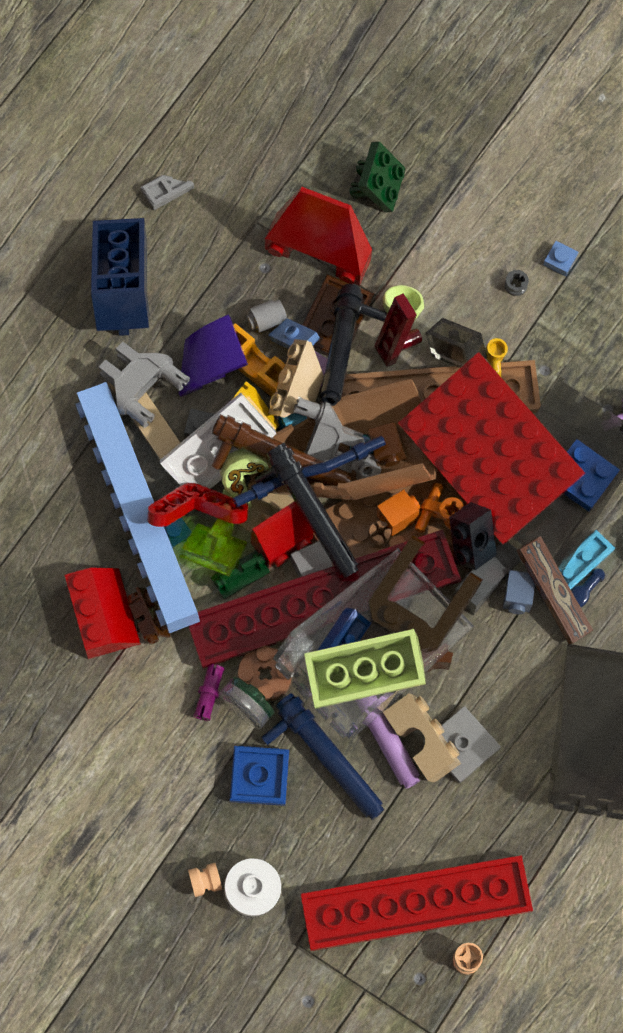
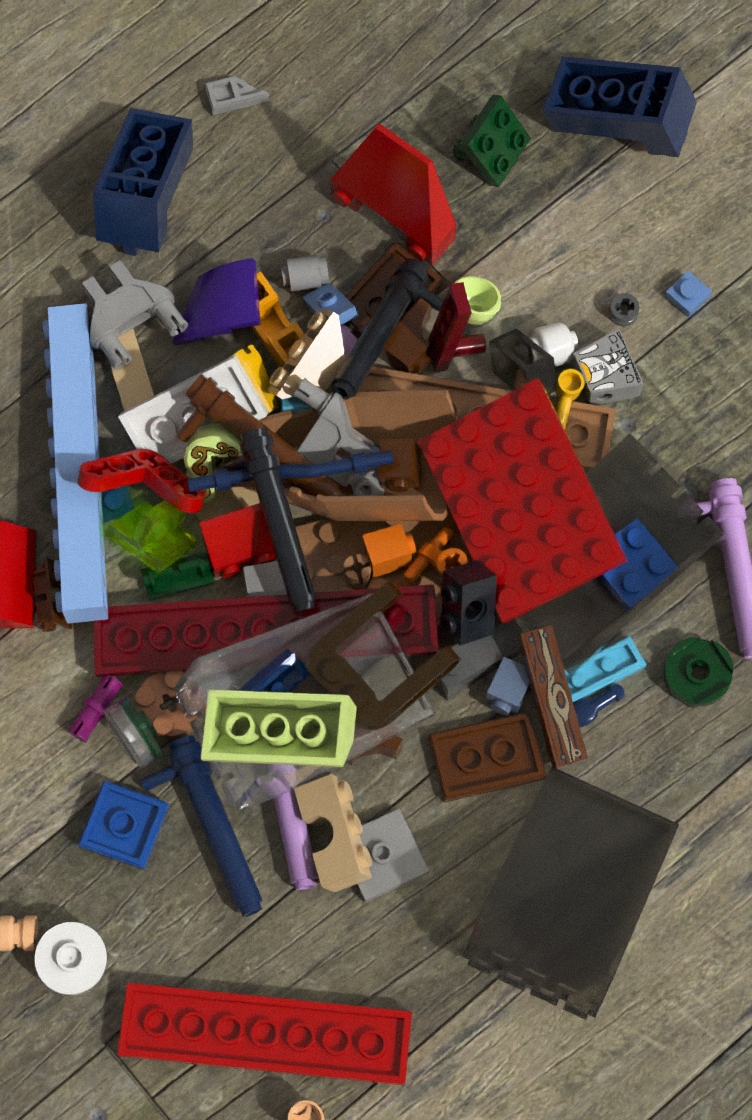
camera: 20 degrees right, 0 degrees up
(364, 352) = (407, 346): none -> reddish brown arch
(469, 124) = (622, 102): none -> dark blue hinge
(475, 319) = (556, 341): none -> white head
(517, 649) = (487, 756): none -> reddish brown tile
(520, 332) = (608, 370): none -> light grey torso

